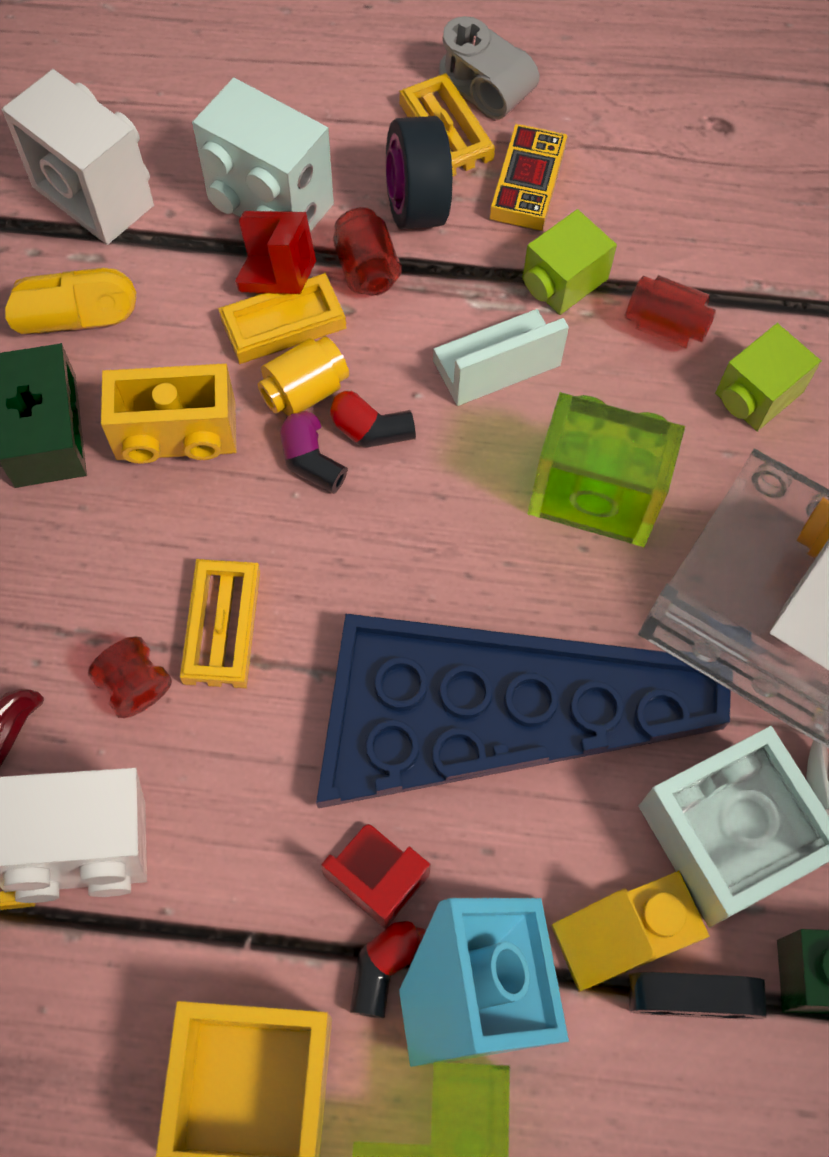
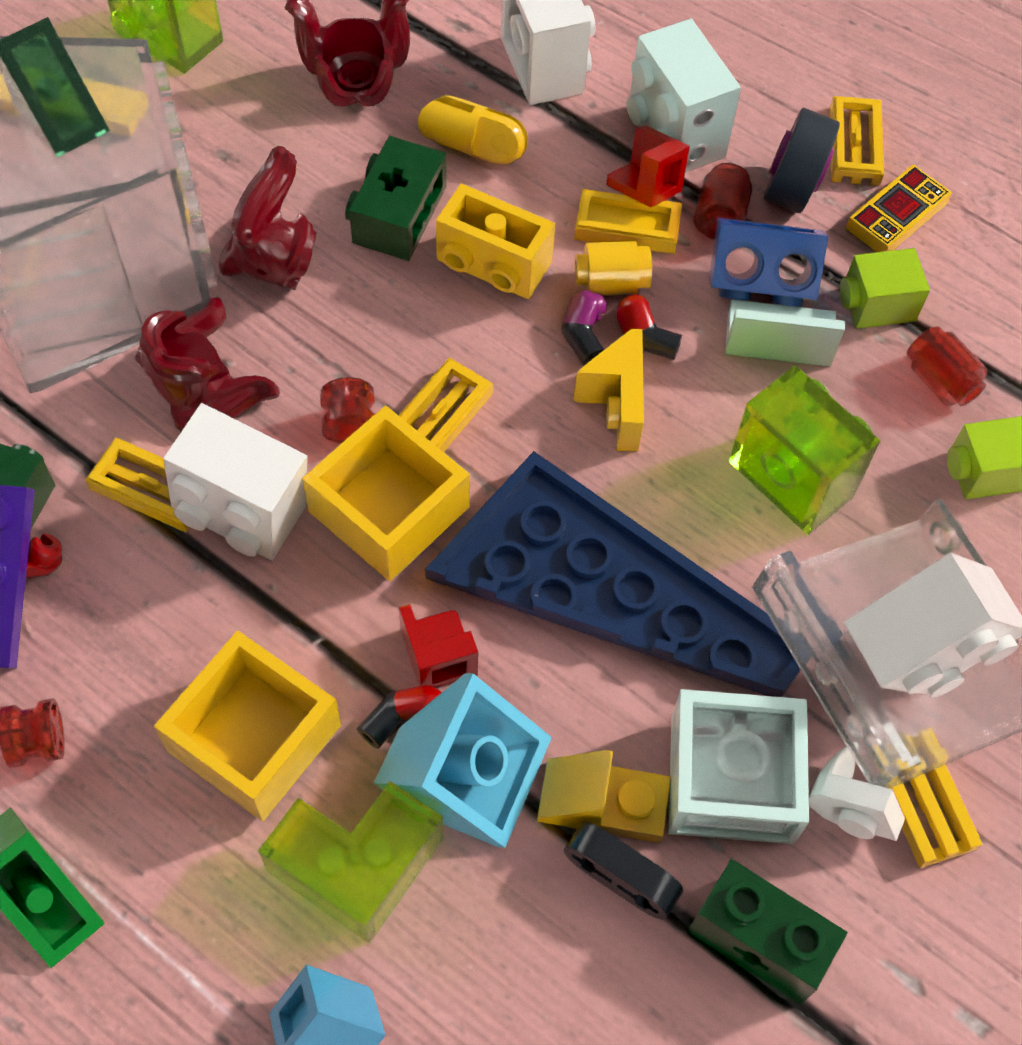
camera: 30 degrees right, 5 degrees down
(228, 745) = (387, 492): none -> yellow piece
(385, 491) = (617, 380): none -> yellow slope
(445, 277) = (770, 246): none -> blue brick
(491, 72) = (916, 109): light grey piece -> none

